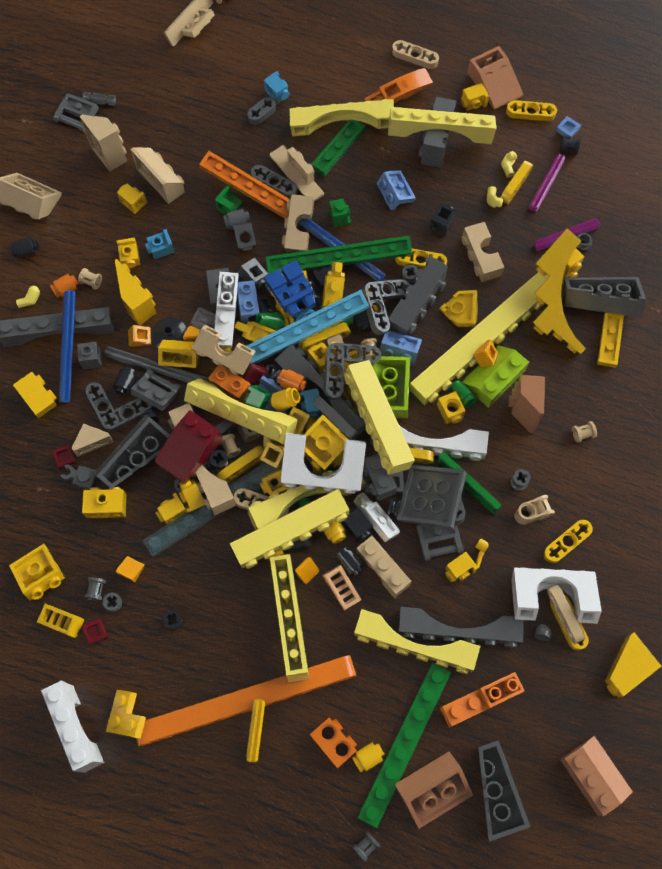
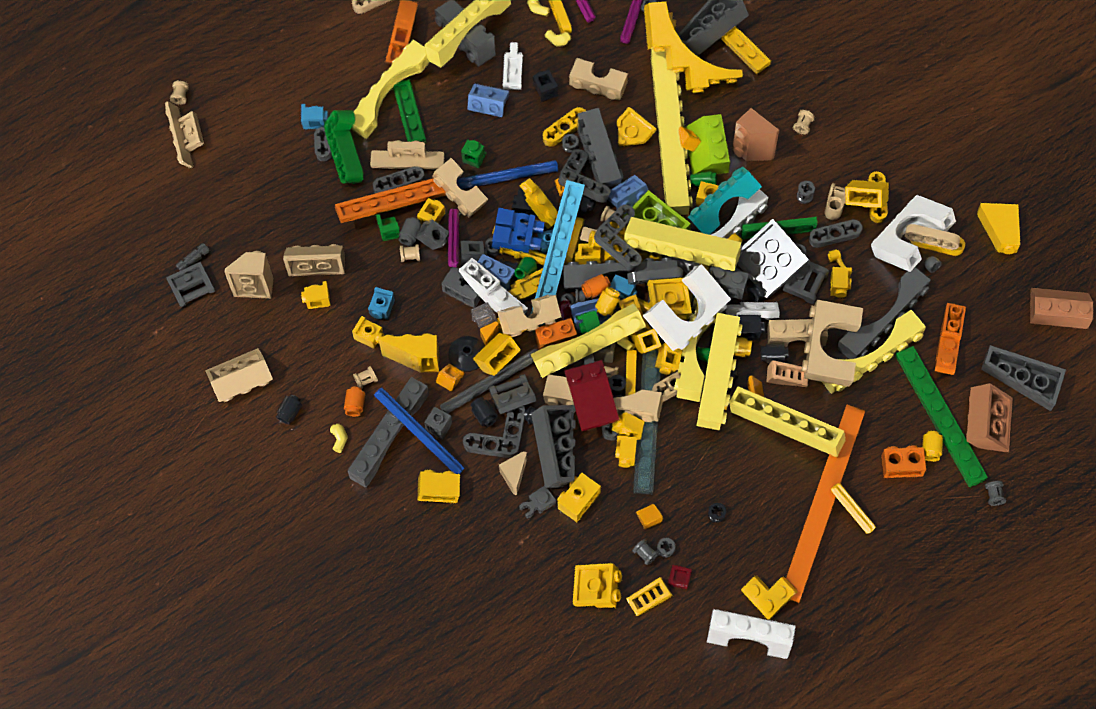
camera: 50 degrees left, 5 degrees down
(64, 456) = (509, 503): dark red tile -> none
(218, 232) = (410, 253): none -> tan bush
(253, 251) = (453, 238): none -> magenta axle
(263, 222) = (431, 208): none -> yellow brick
(266, 123) = (342, 146): none -> green beam
(343, 254) = (513, 179): green plate -> none
(405, 578) = (818, 364): none -> tan arch
(438, 186) = (512, 68): none -> white hinge
(473, 422) = (738, 185): none -> teal arch
(502, 523) = (829, 239): none -> dark grey beam
(557, 529) = (866, 193): none -> yellow brick

